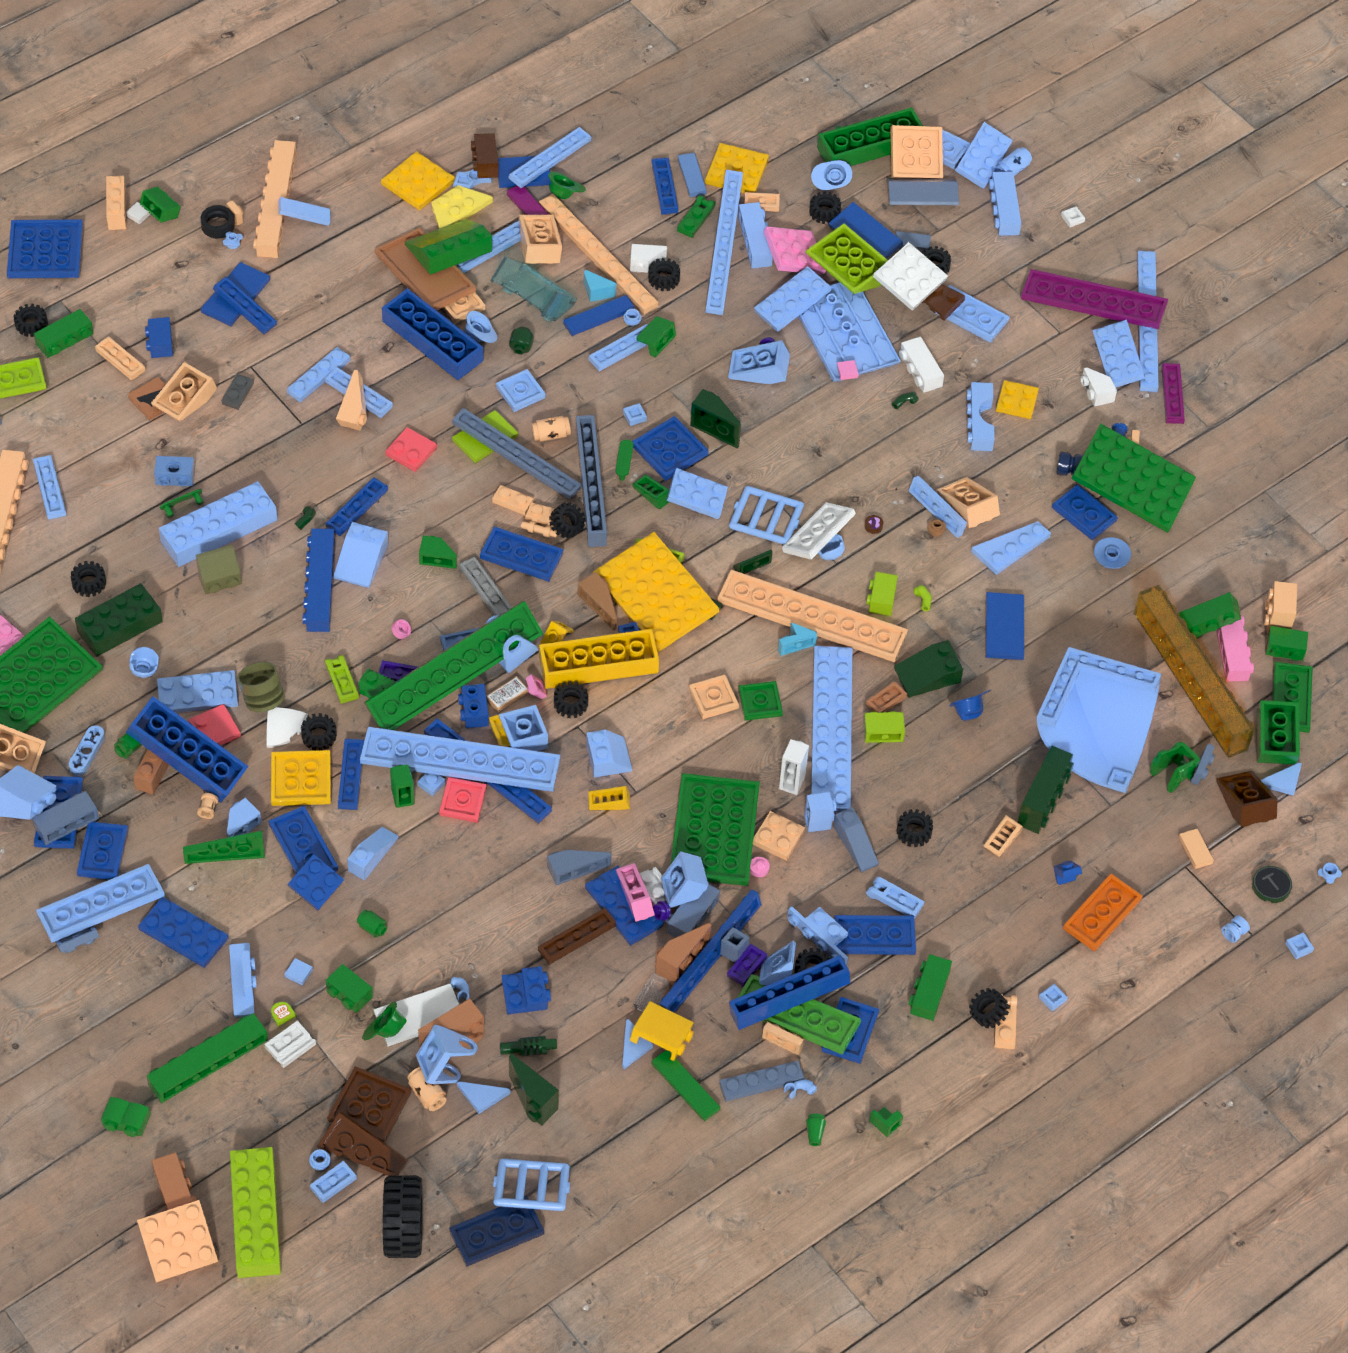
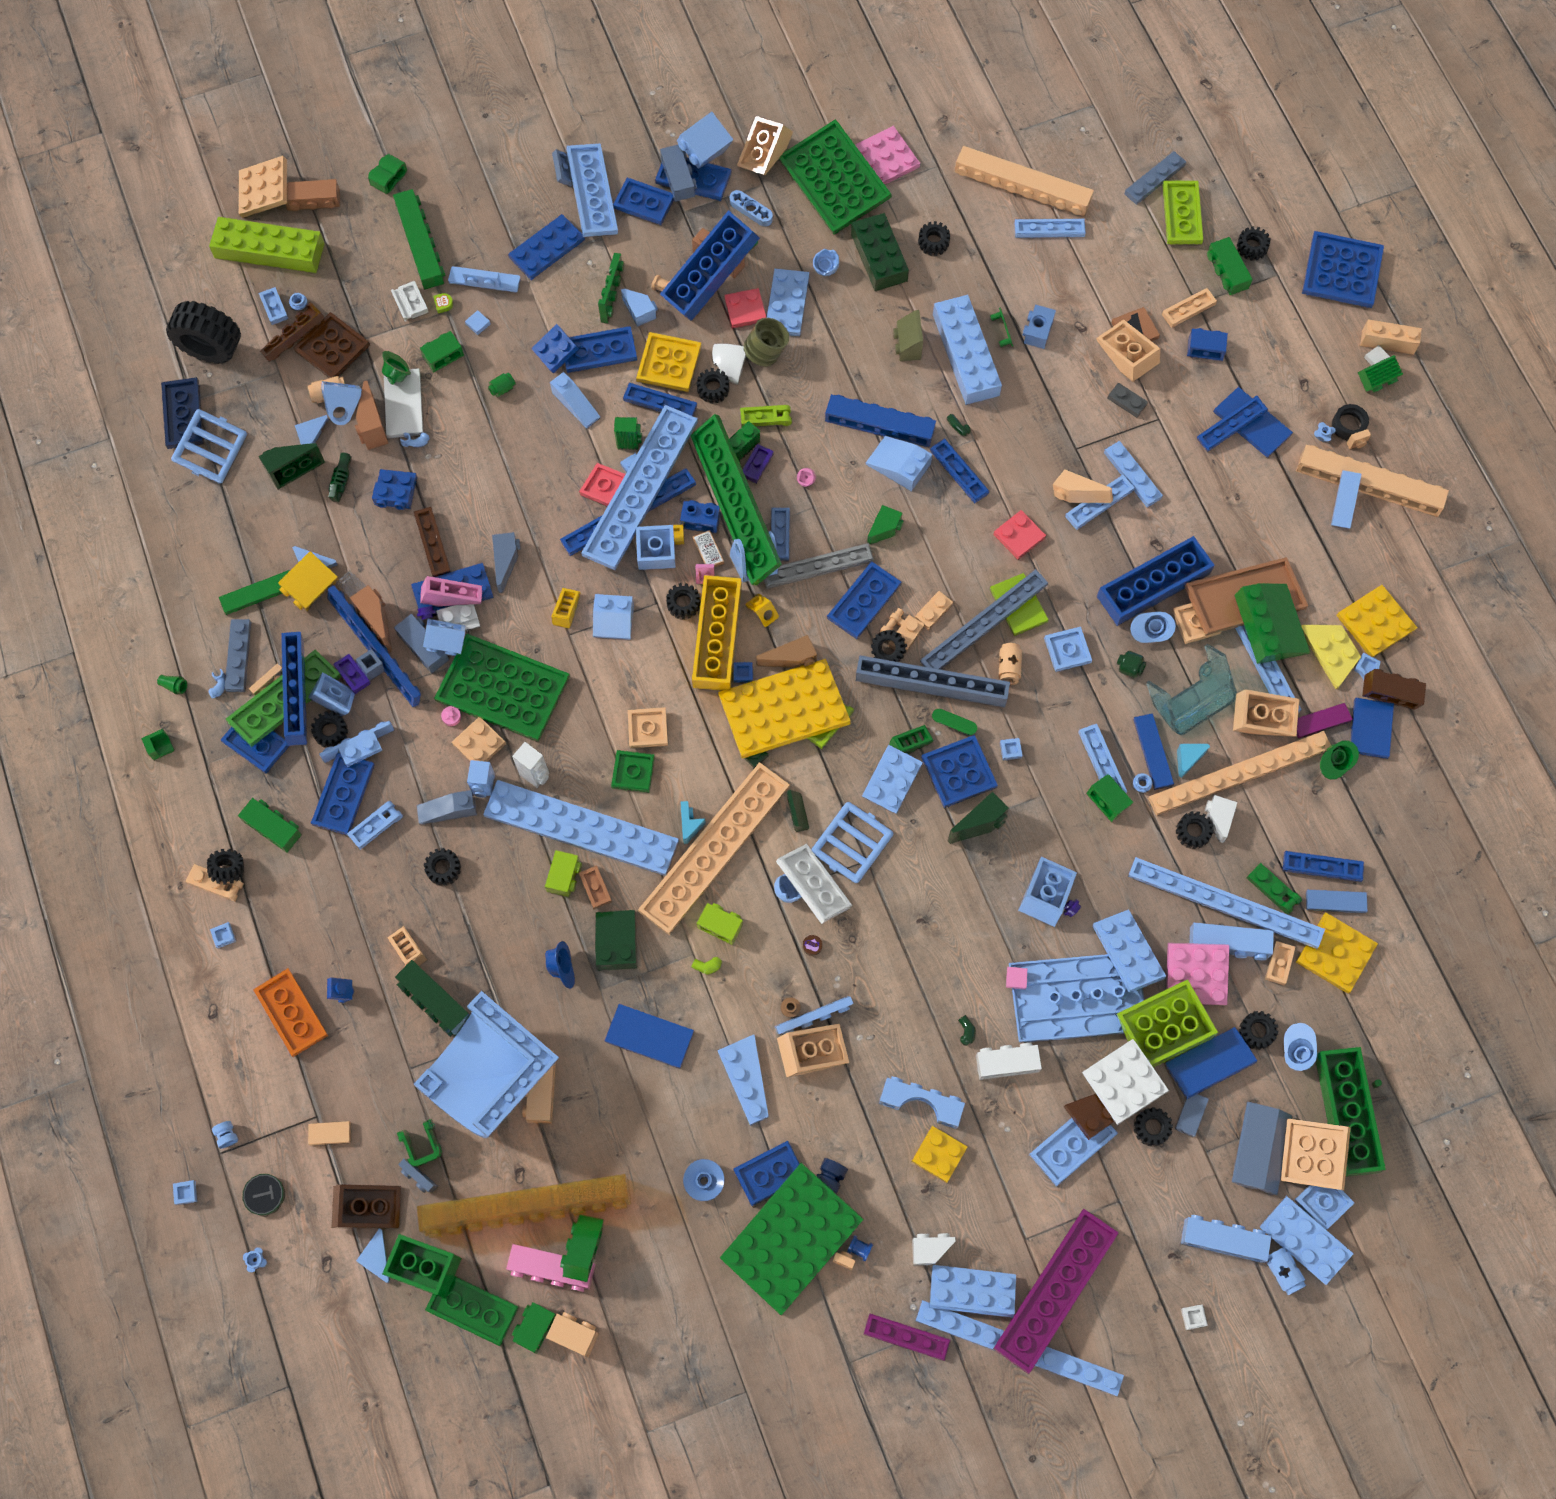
camera: 110 degrees right, 15 degrees up
(550, 157) = (1384, 757): light blue tile -> none

